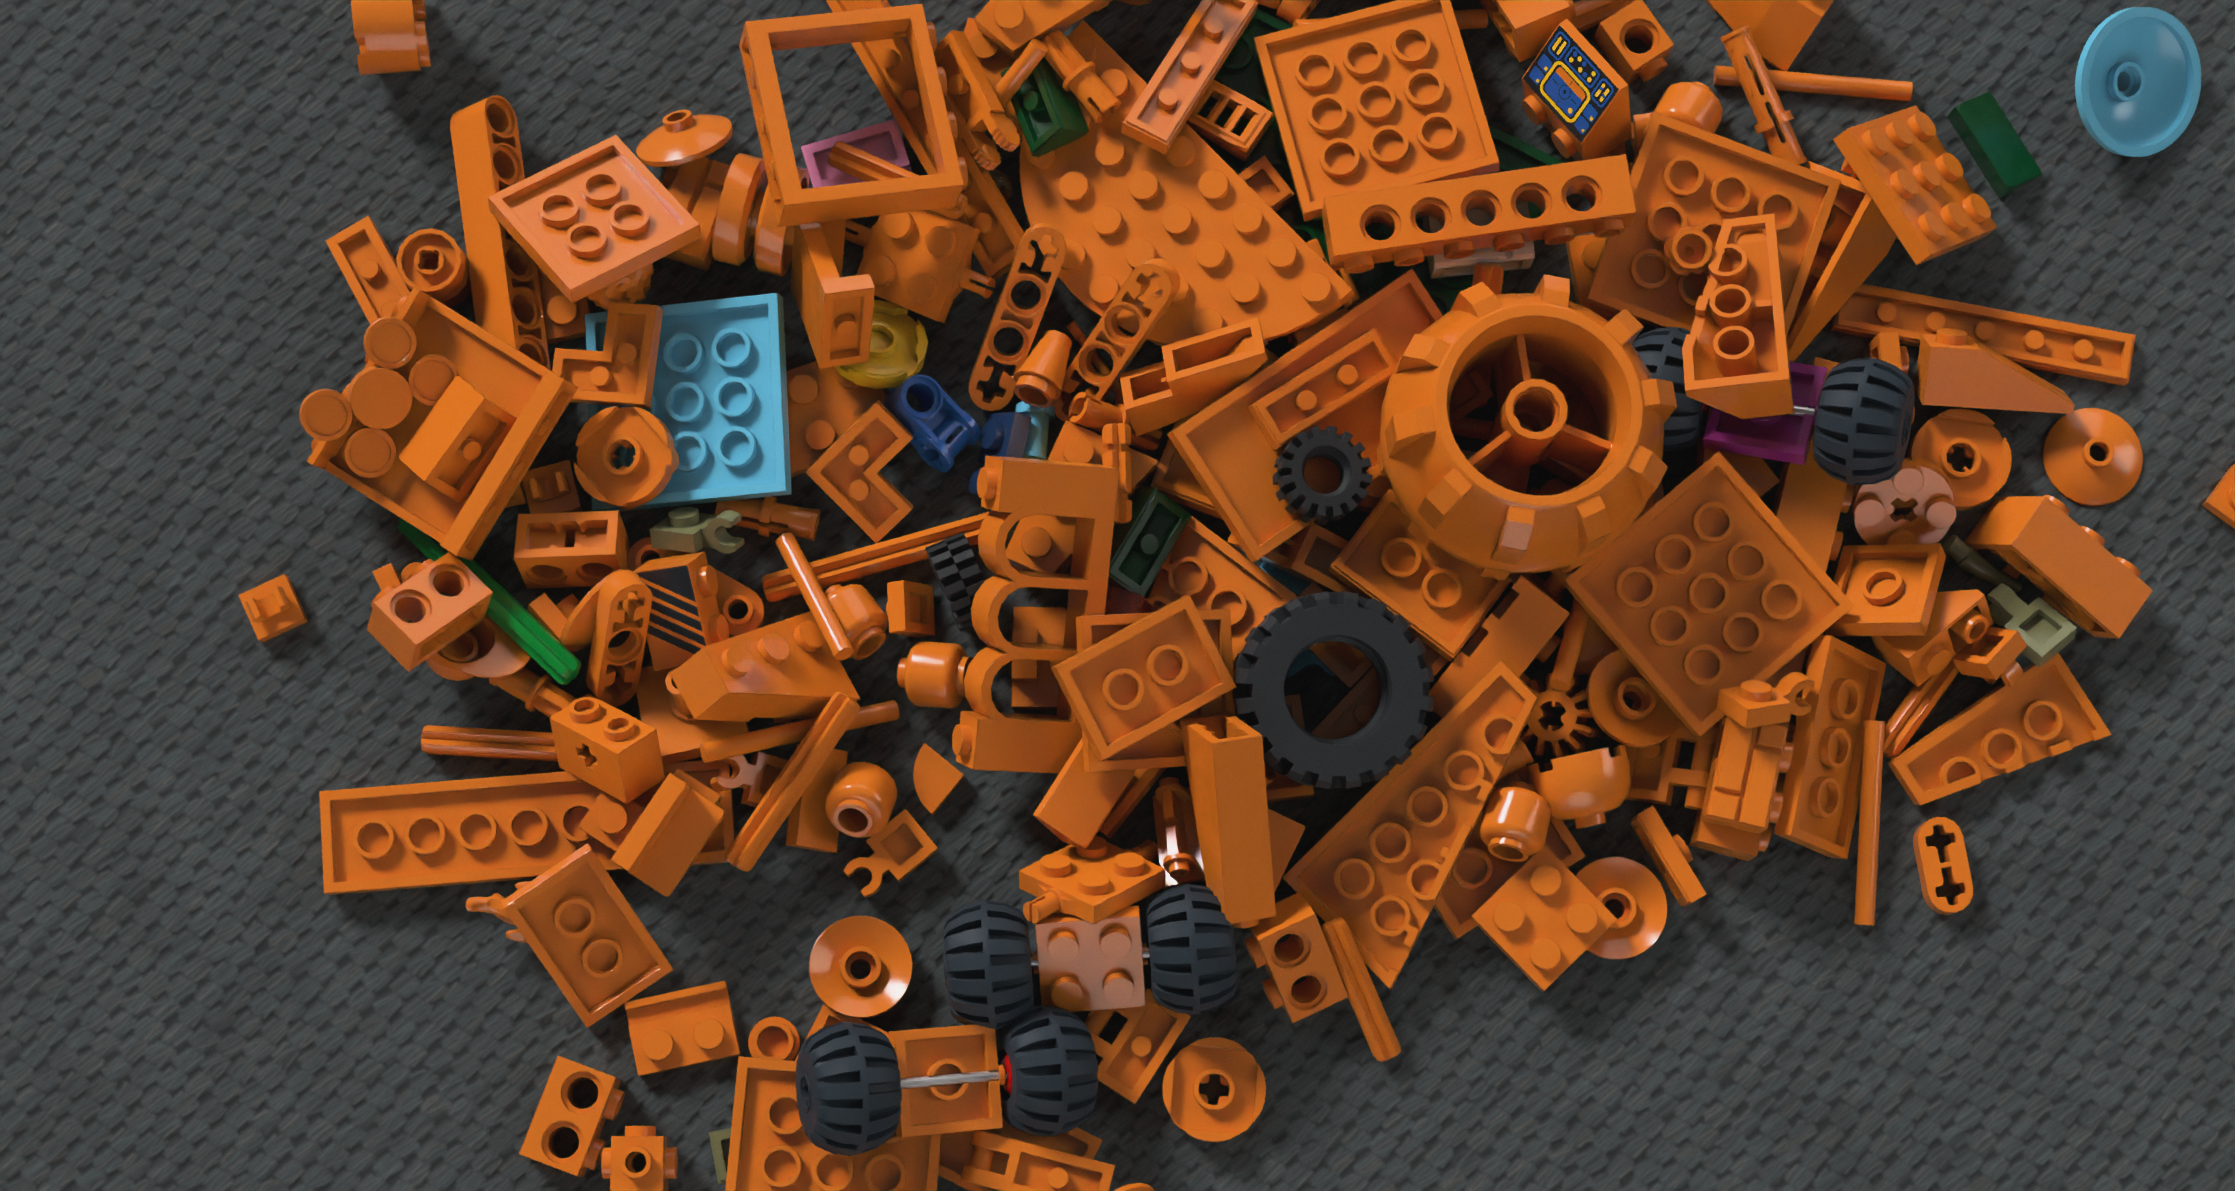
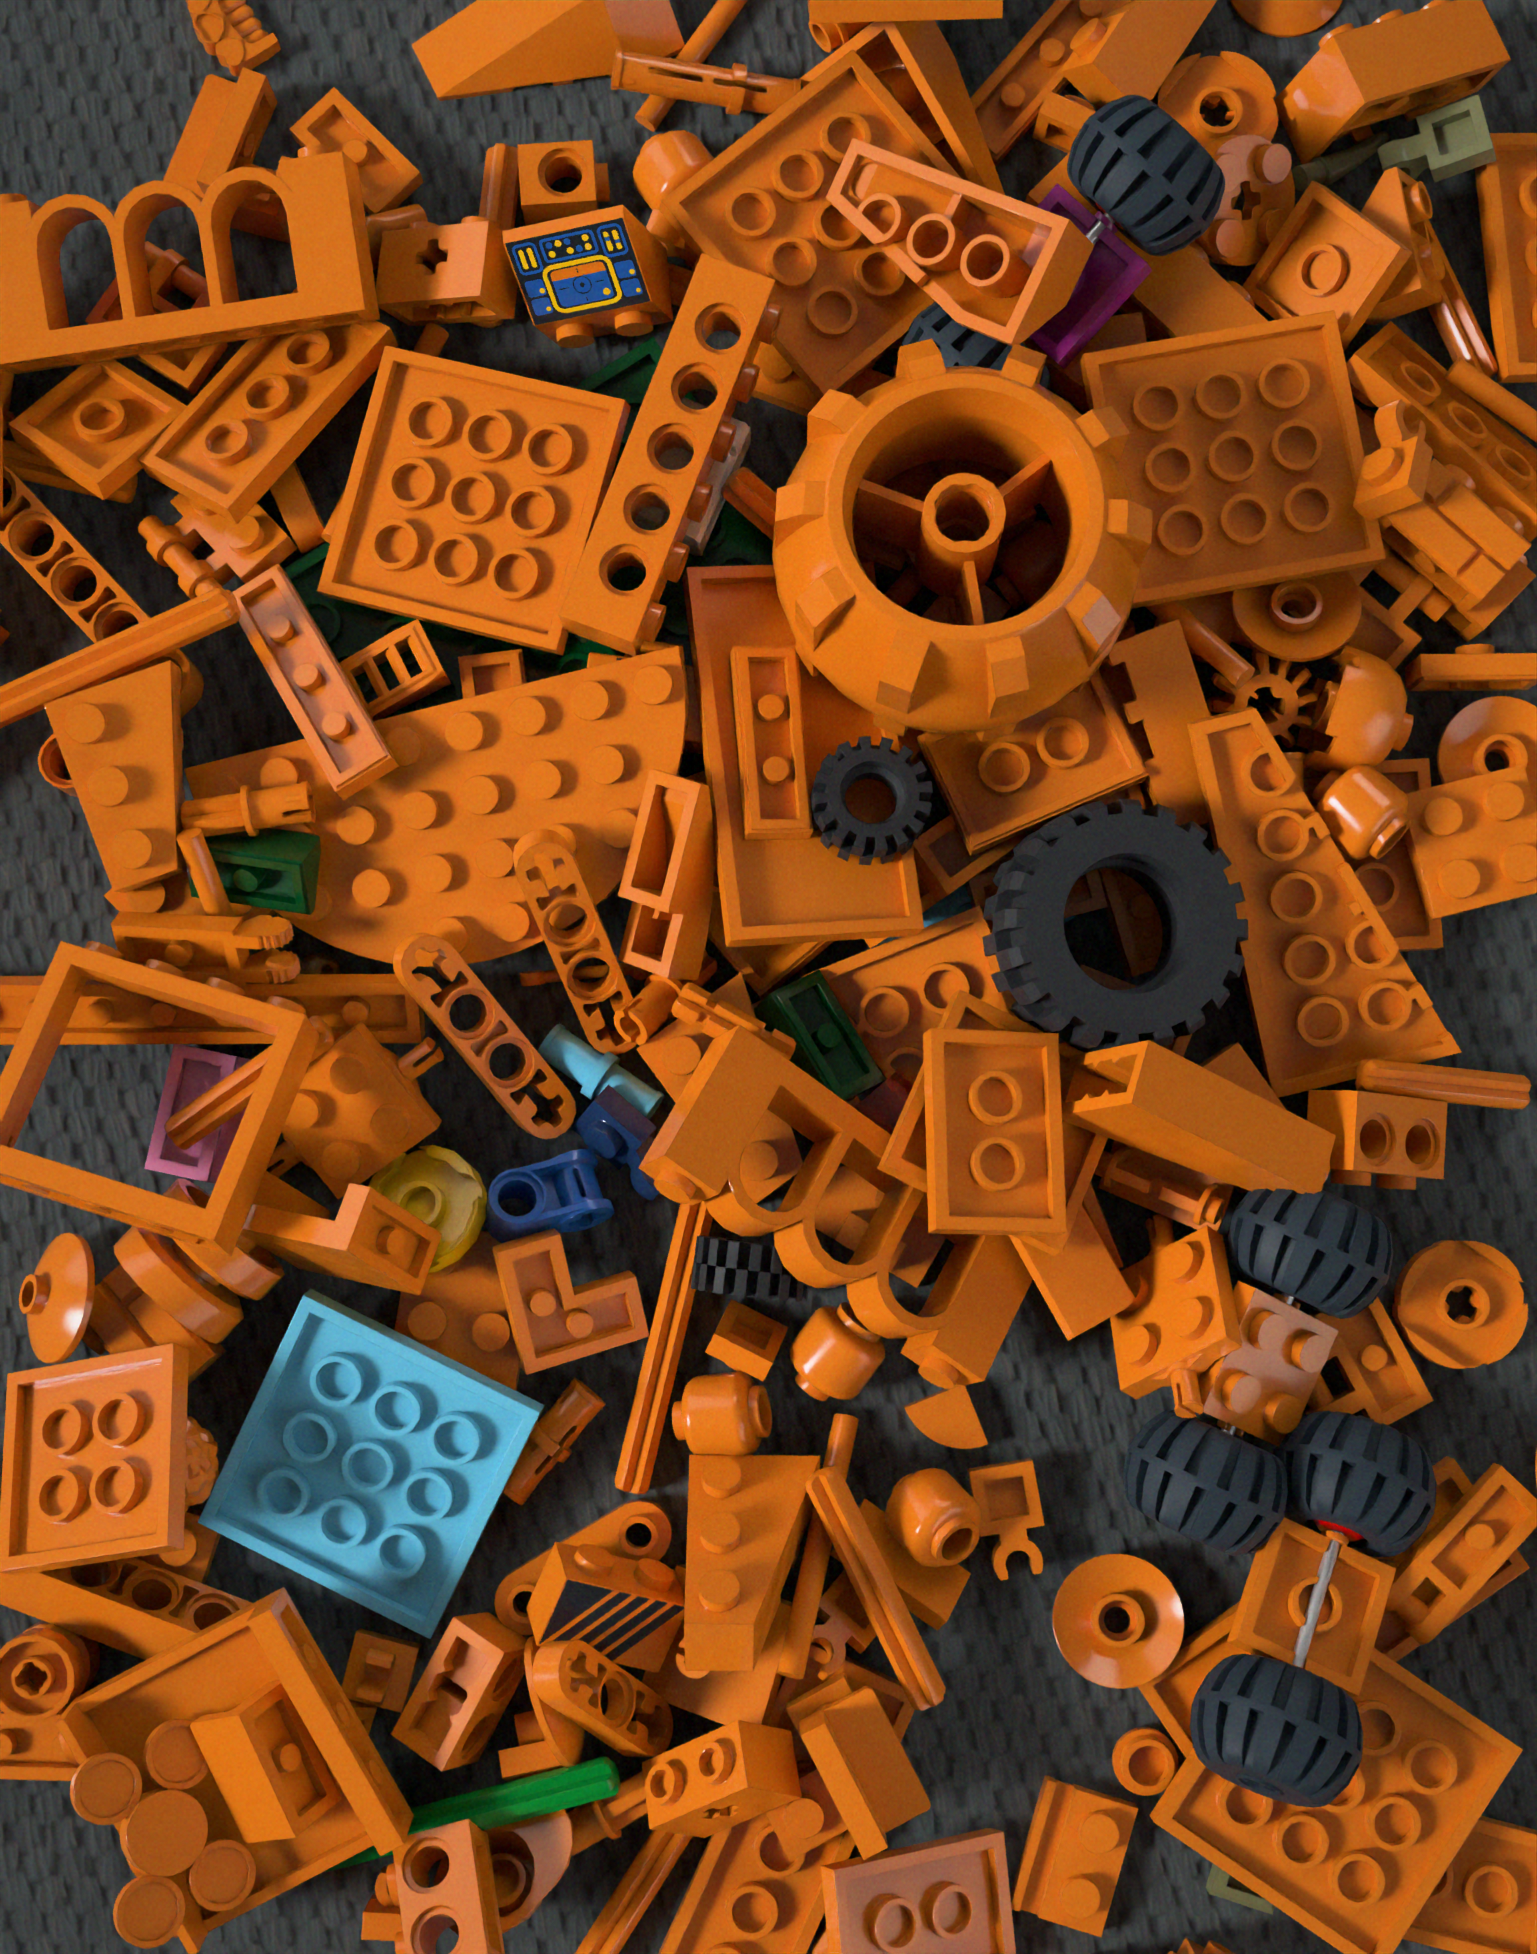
camera: 60 degrees left, 5 degrees up
(626, 366) = (286, 1511): orange plate -> none
(651, 466) = (414, 1541): orange plate -> none
(691, 531) = (520, 1541): olive plate -> none
(814, 596) = (677, 1444): orange bar -> none
(1044, 370) = (564, 1040): orange cone -> none
(1698, 242) = (845, 239): orange plate -> none
(1993, 656) = (1457, 201): orange tile -> none

